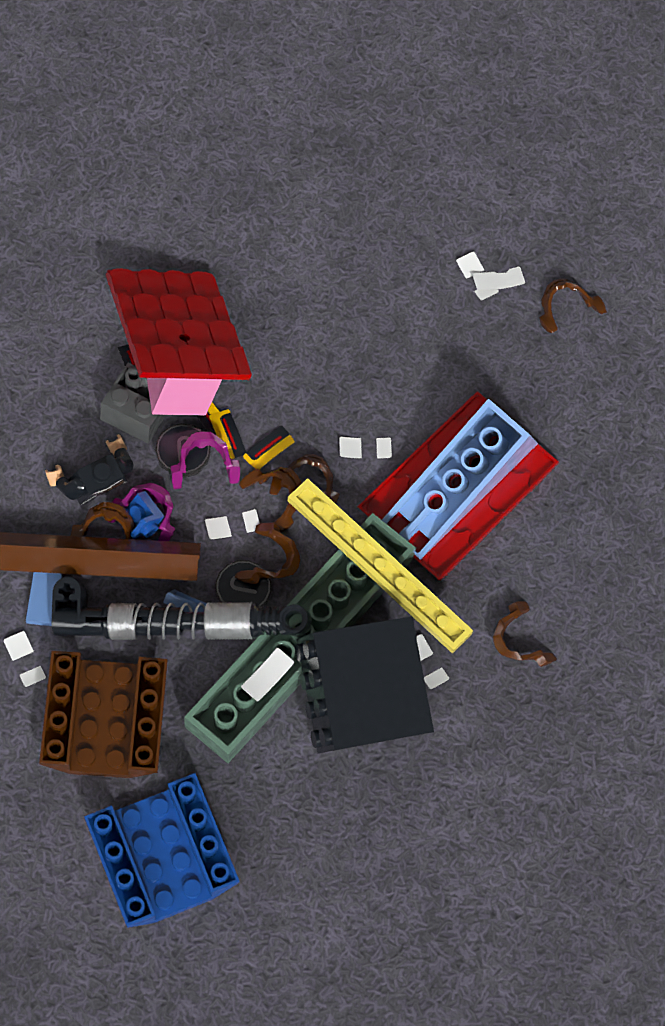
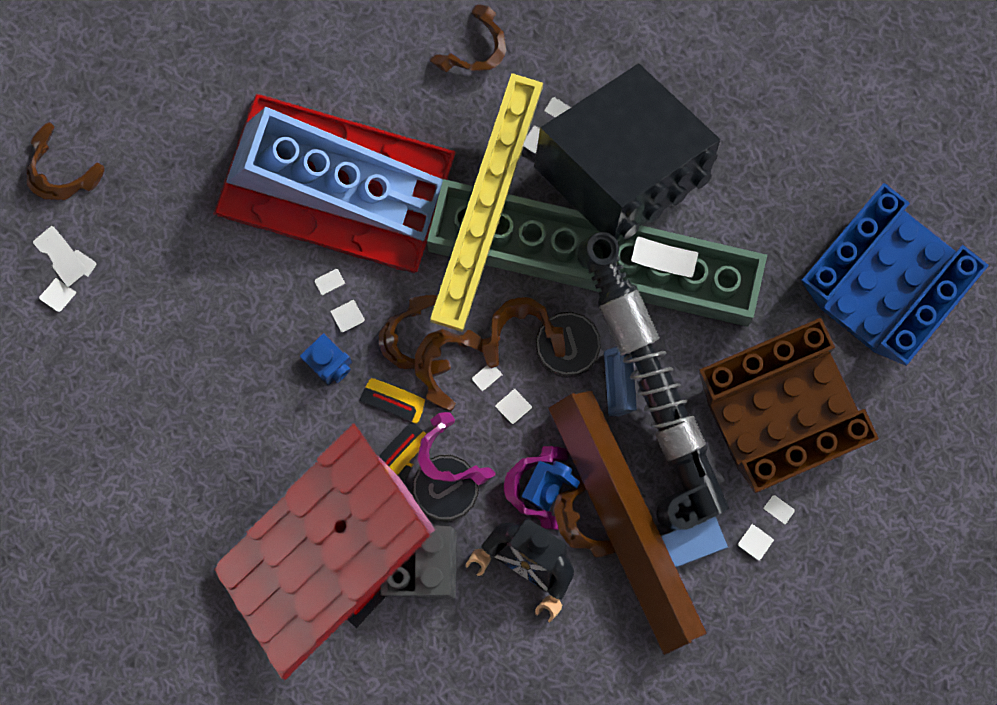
camera: 110 degrees left, 10 degrees up
(323, 415) = (327, 360): none -> blue bracket

